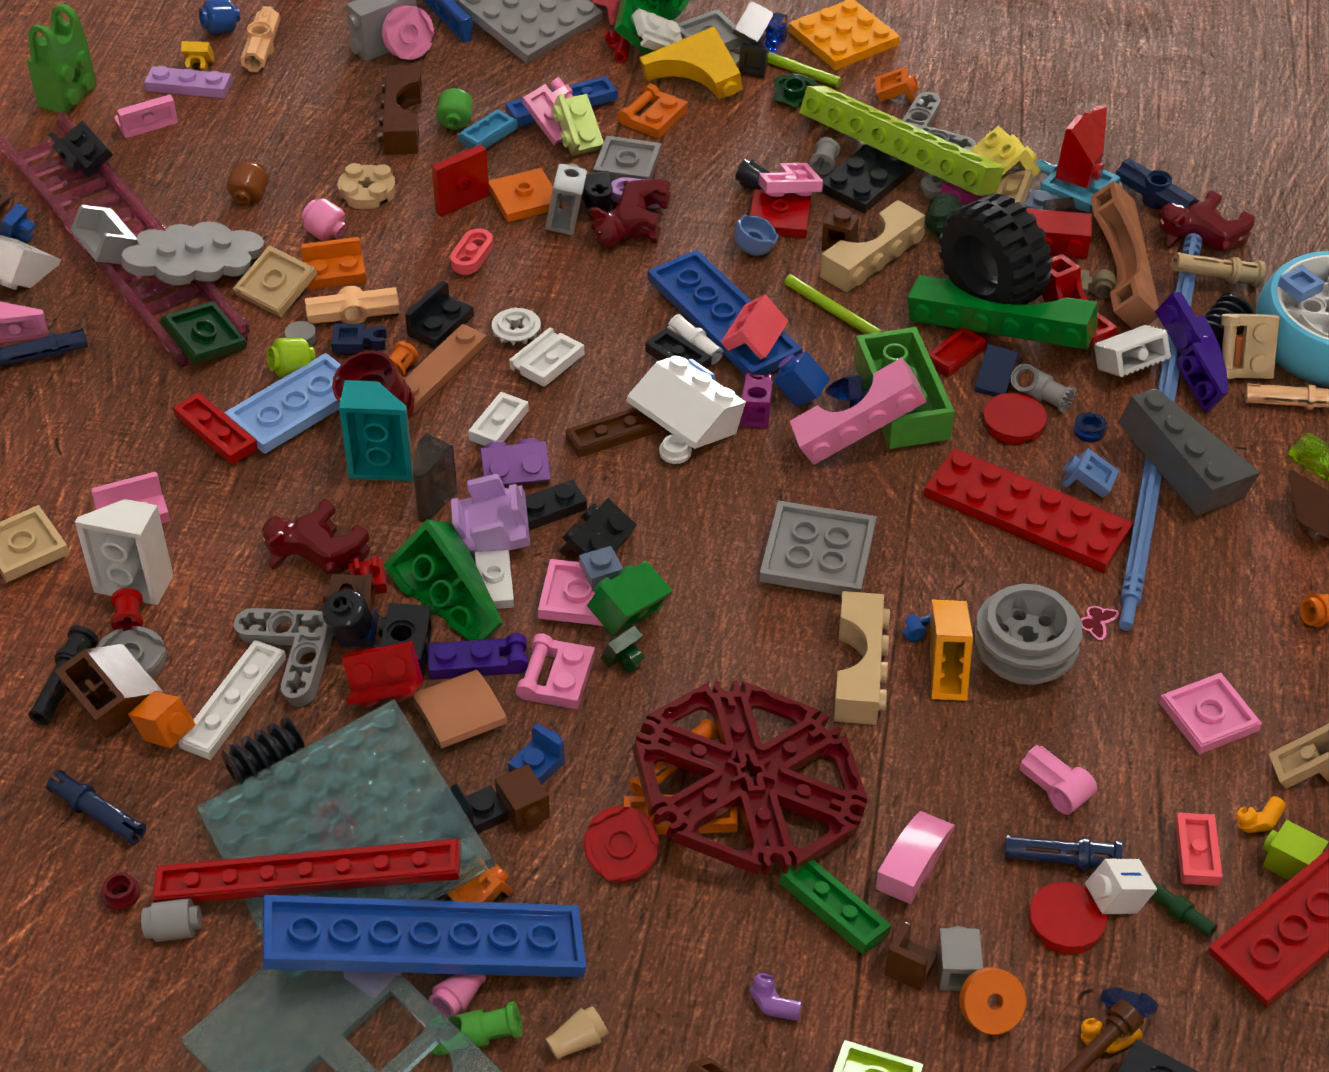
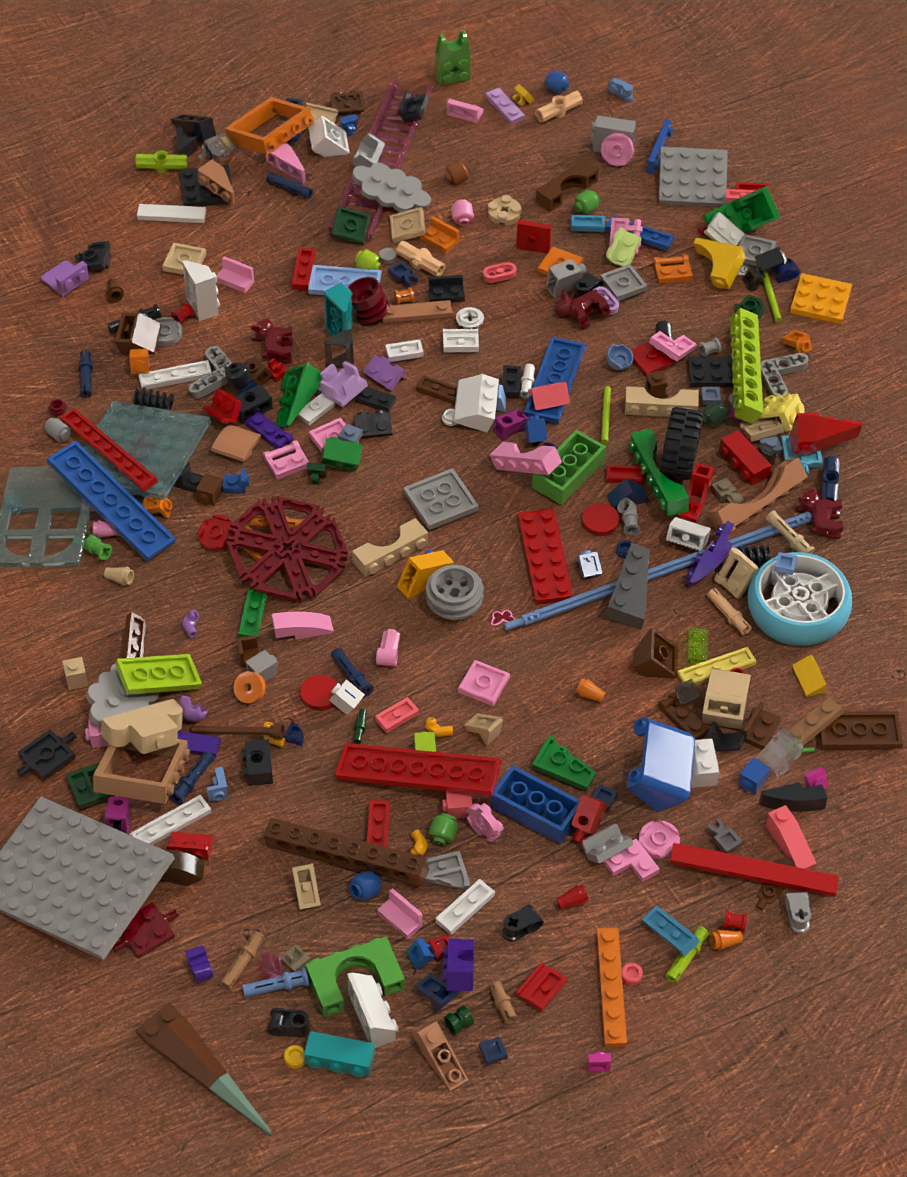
camera: 50 degrees right, 5 degrees up
(908, 196) = (710, 395): none -> sand blue plate

